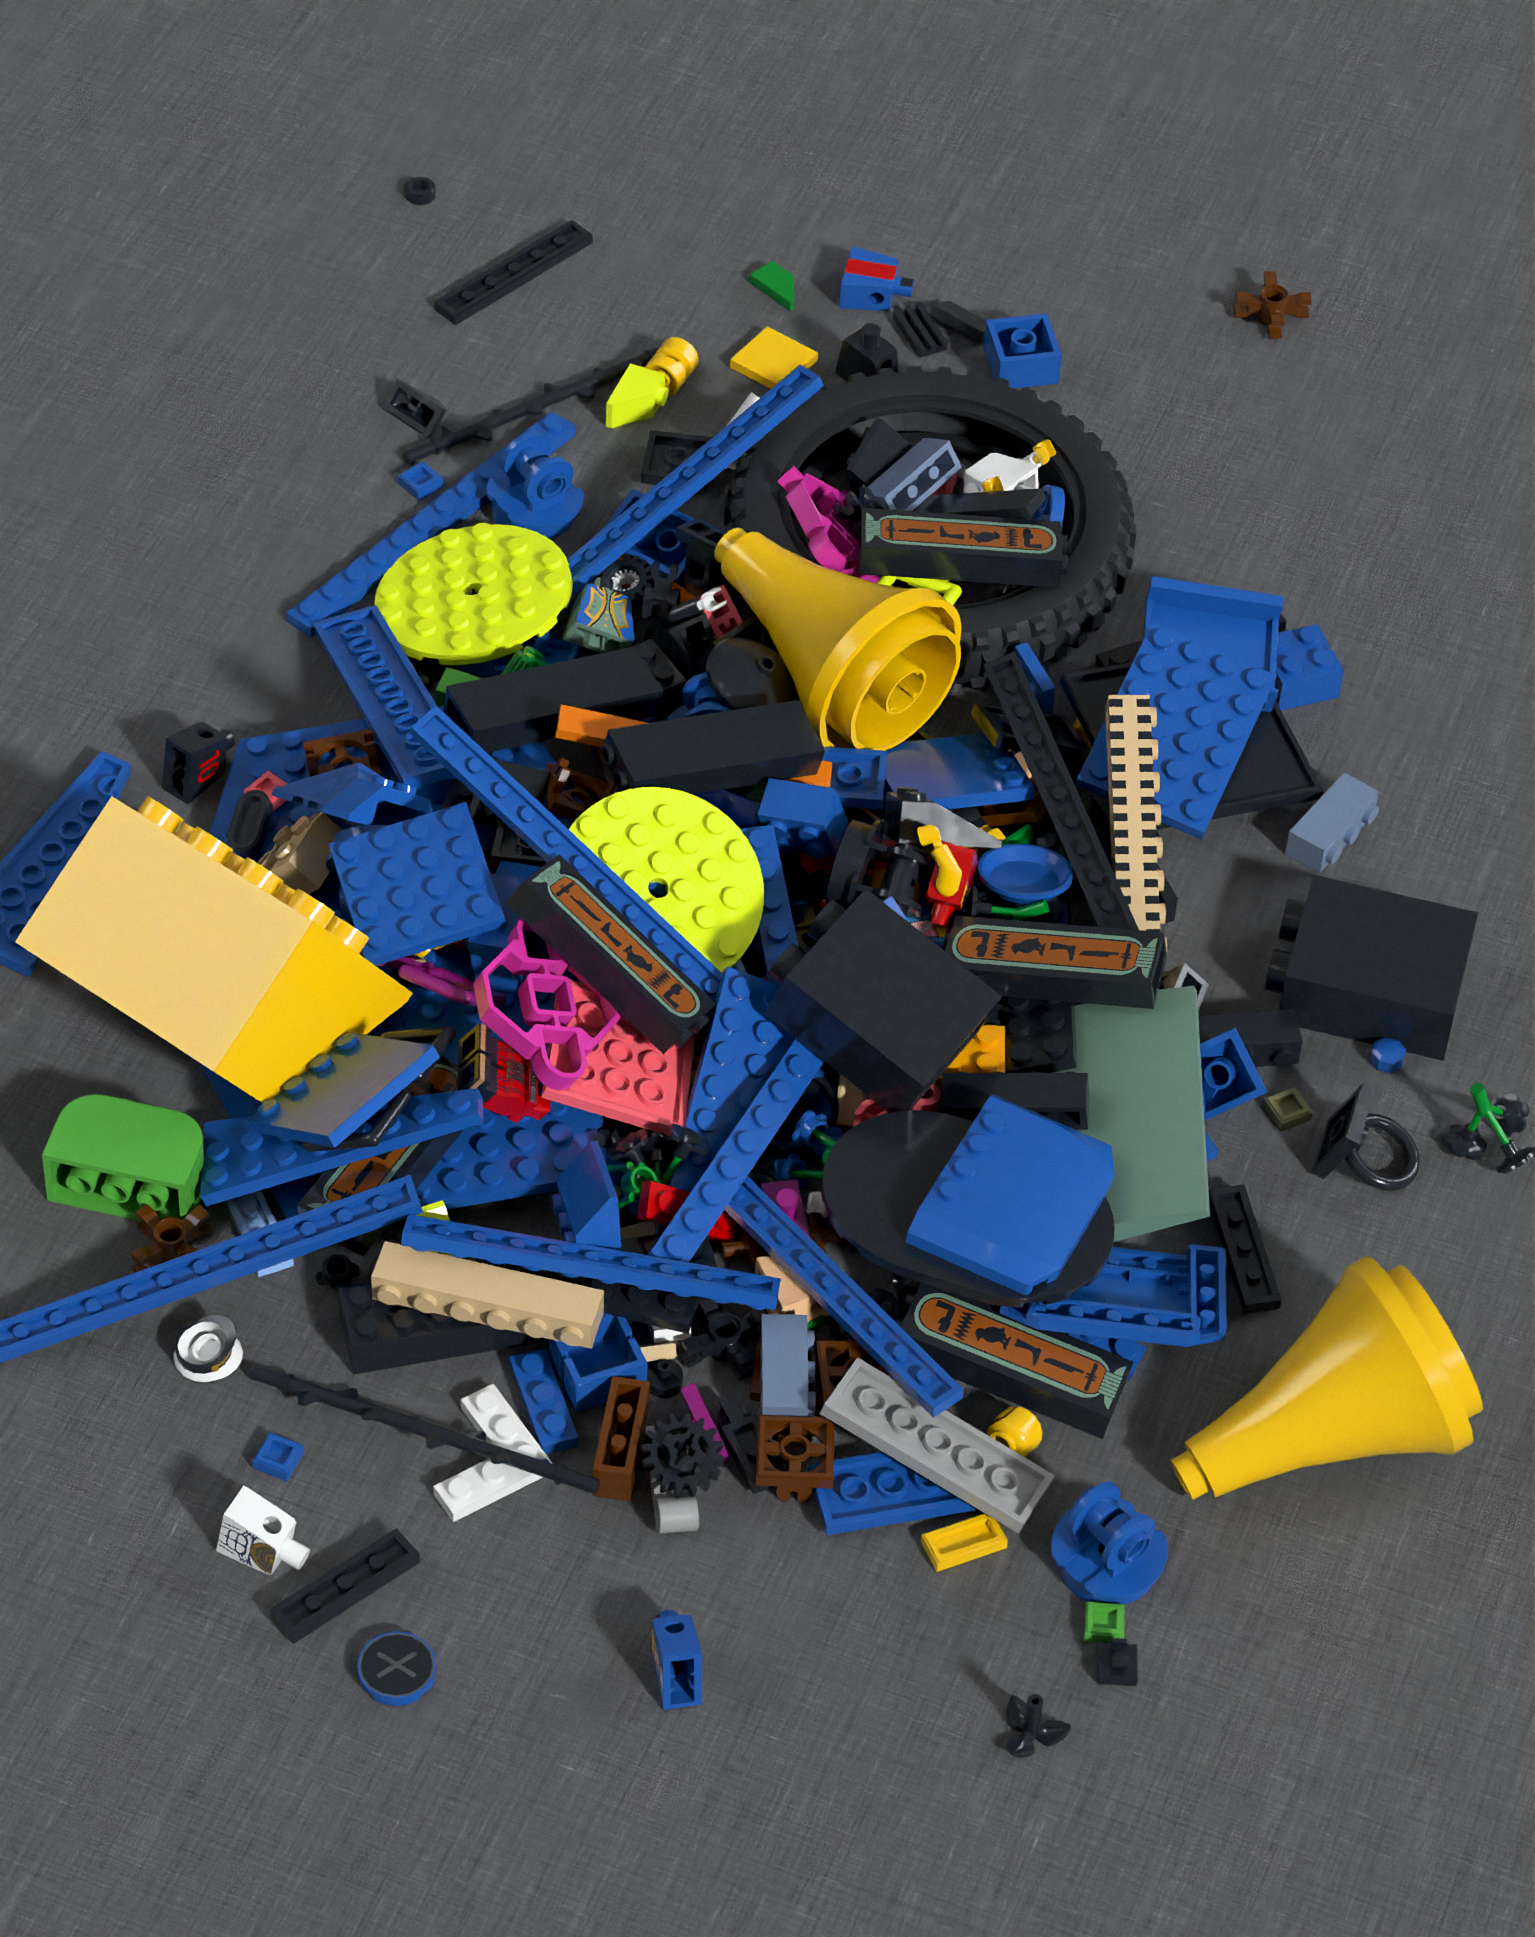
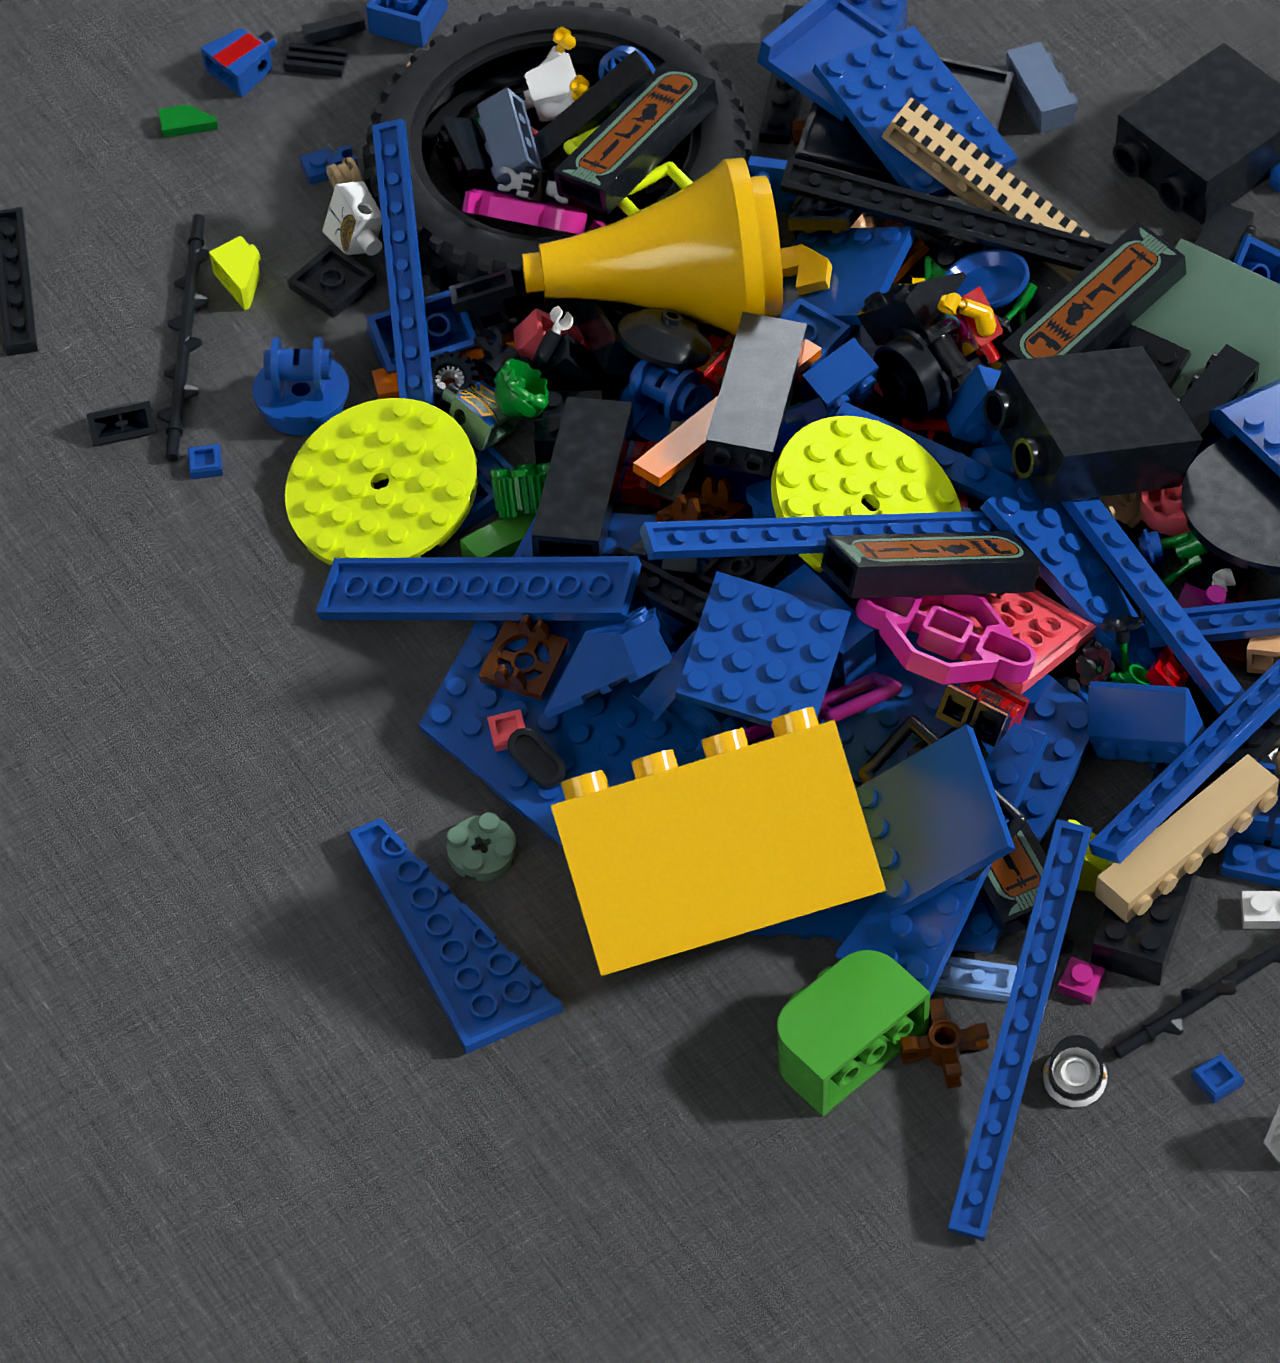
camera: 50 degrees left, 5 degrees up
(194, 760) = (413, 753): black torso -> none
(302, 852) = (609, 736): tan slope -> none
(313, 1312) = (1081, 980): none -> dark pink plate
(442, 514) = (262, 481): blue plate -> none
(626, 617) = (520, 390): none -> green hair
(676, 360) = (224, 223): yellow wheel -> none
(772, 357) = (268, 165): yellow tile -> none
(866, 353) = (336, 105): black torso -> none
(939, 745) = (811, 268): none -> yellow tile

